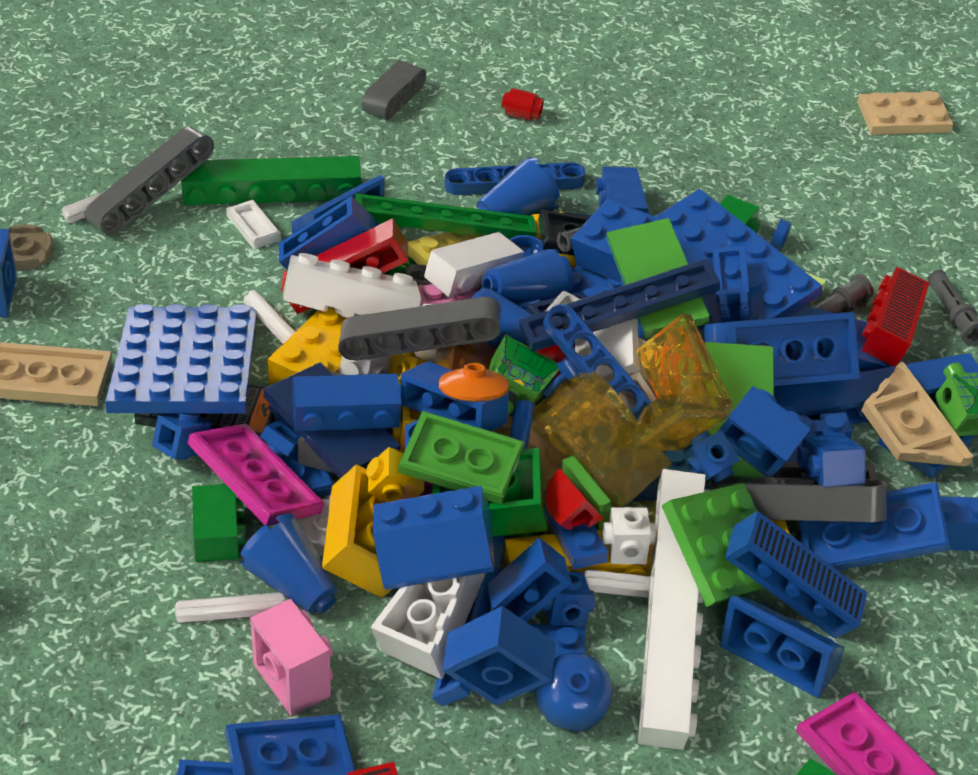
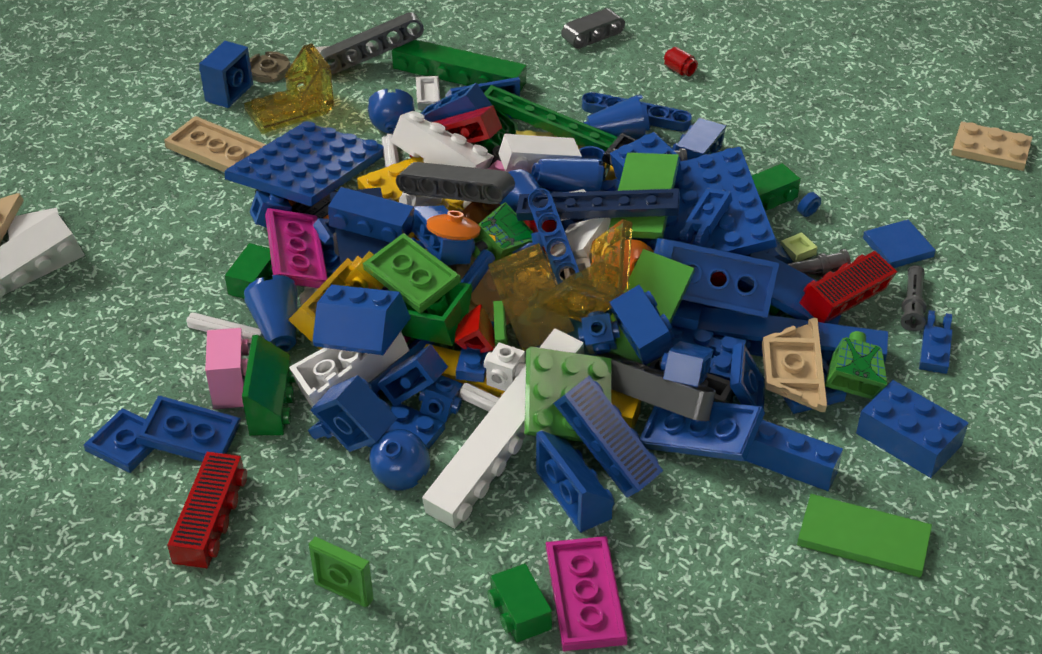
camera: 30 degrees right, 0 degrees up
(109, 270) = (296, 103): none -> clear yellow bracket
(237, 261) = (386, 108): none -> blue cylinder
(358, 667) = (267, 389): none -> green slope
(875, 454) = (746, 378): none -> blue tile
(895, 247) = (899, 243): none -> blue tile

